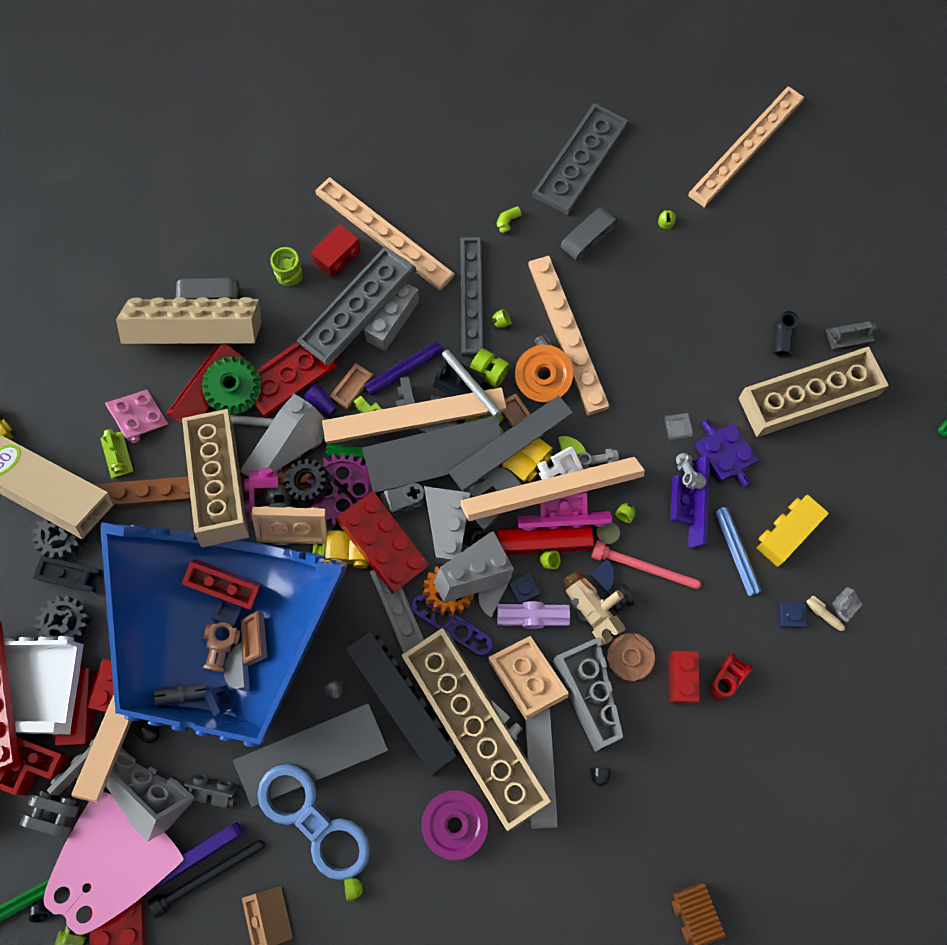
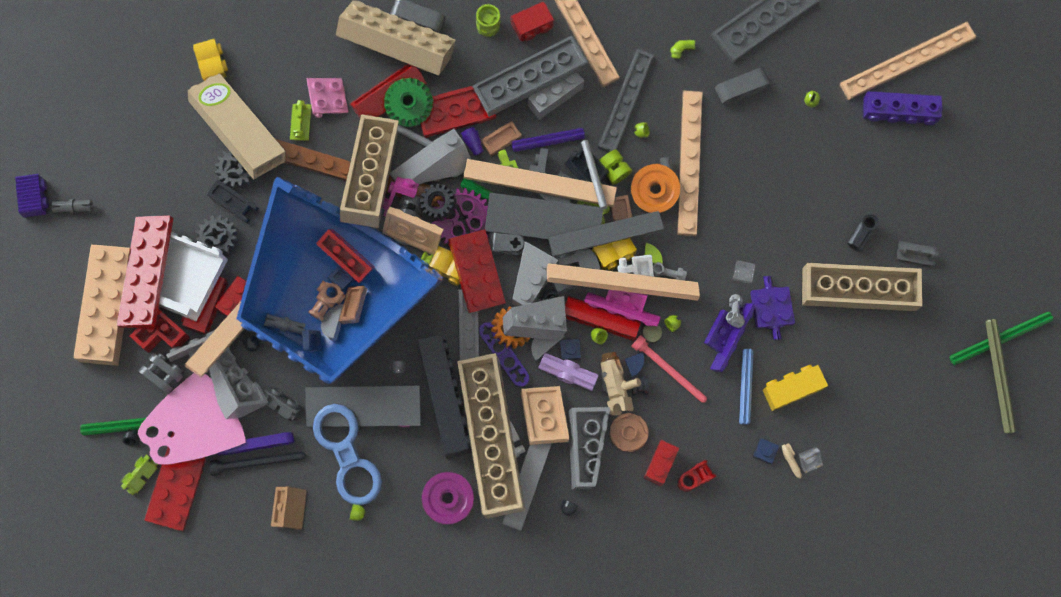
camera: 15 degrees right, 5 degrees up
(764, 192) = (902, 107): none -> dark purple brick

